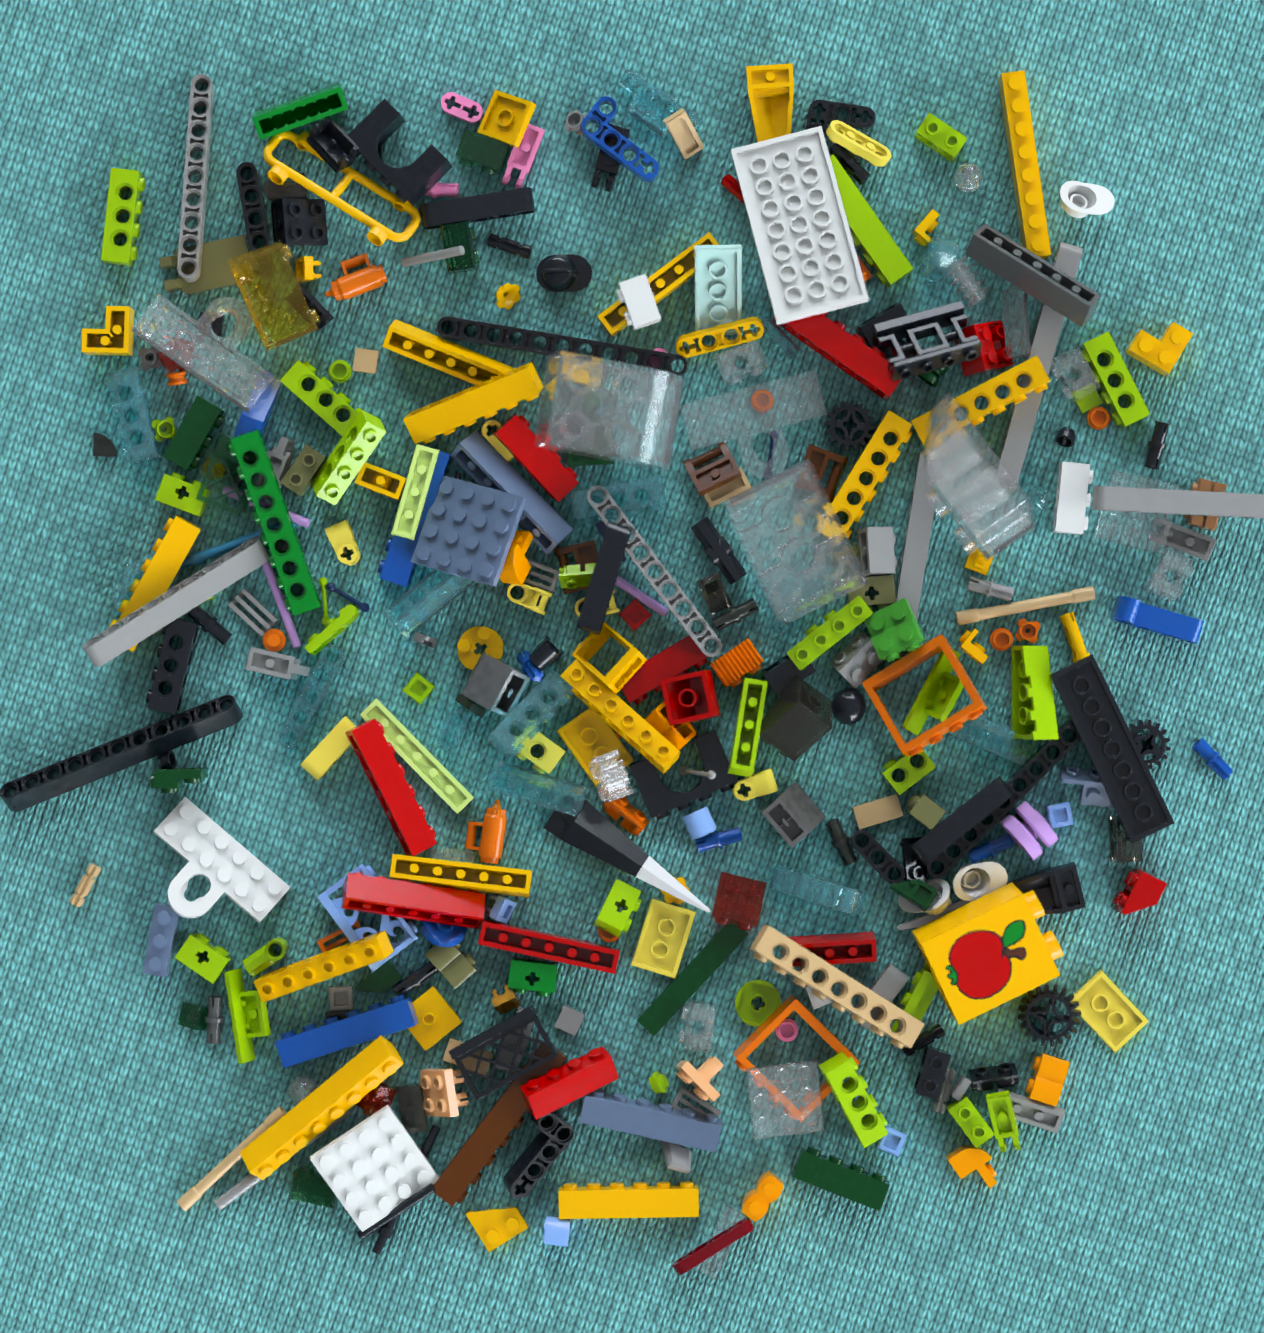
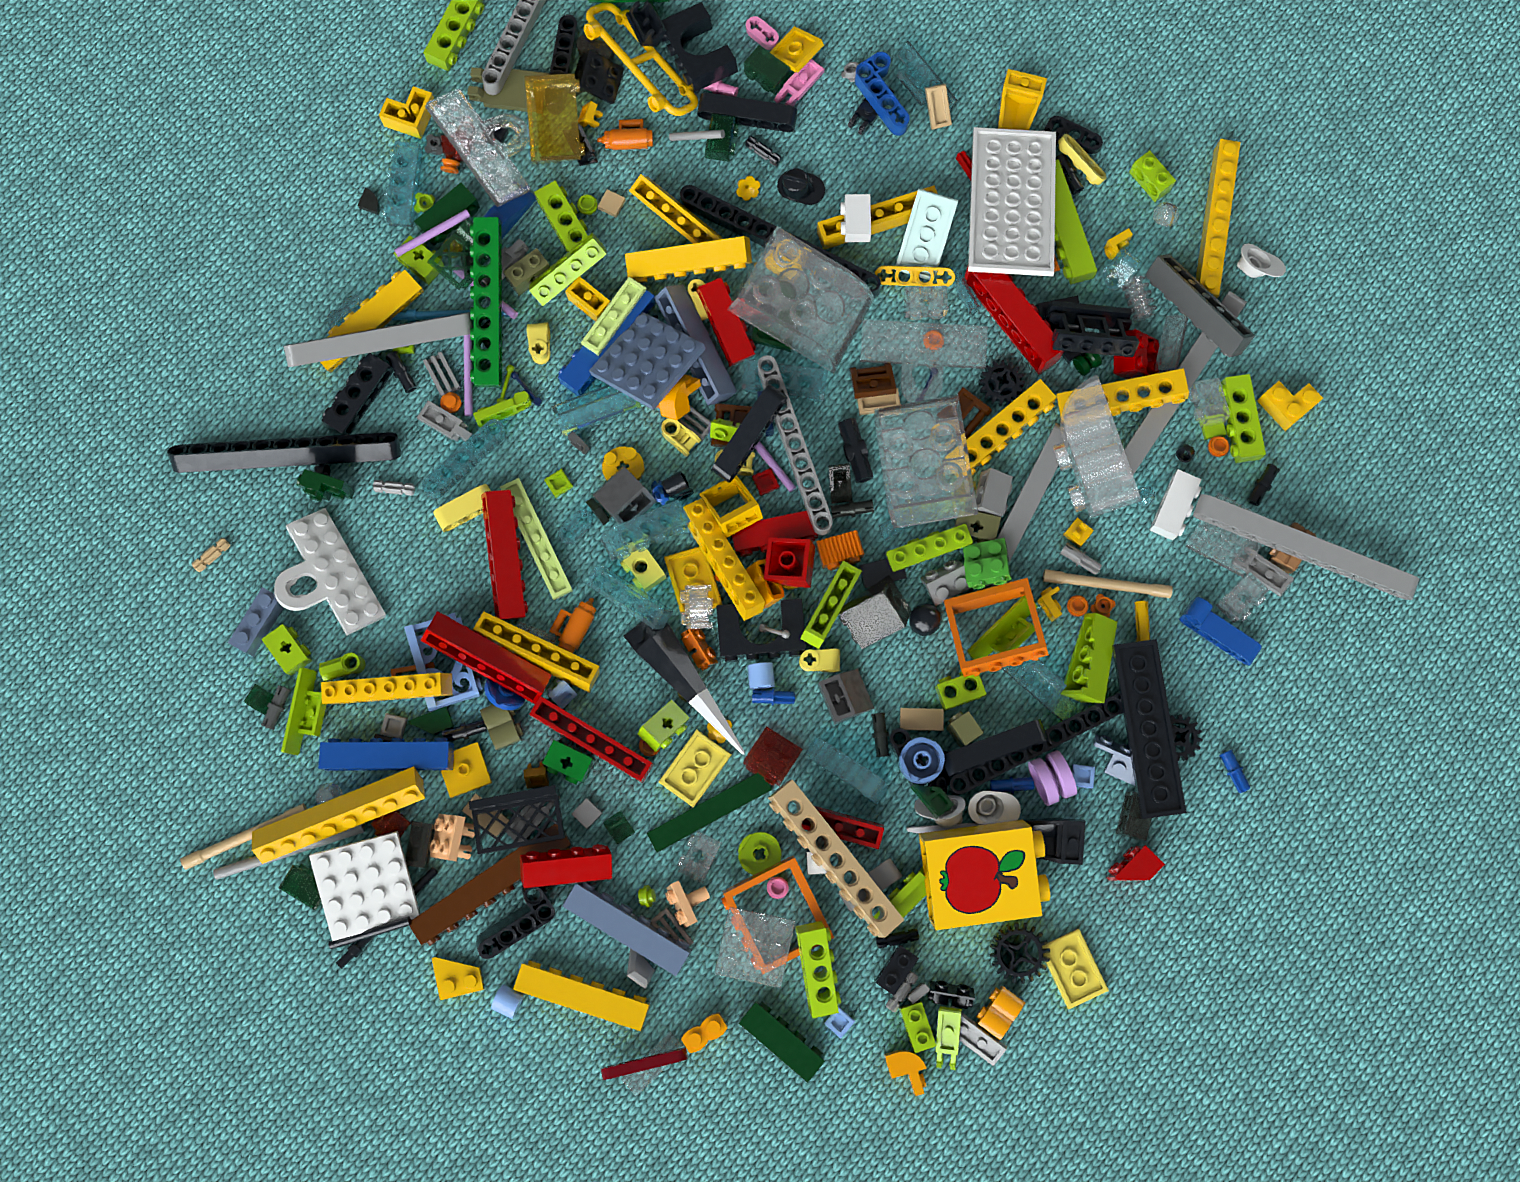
camera: 20 degrees right, 10 degrees down
(188, 464) = (432, 233): none -> lavender bar
(248, 750) = (394, 487): none -> light grey axle
(606, 1023) = (618, 827): none -> clear green slope
(905, 860) = (926, 749): none -> medium blue brick

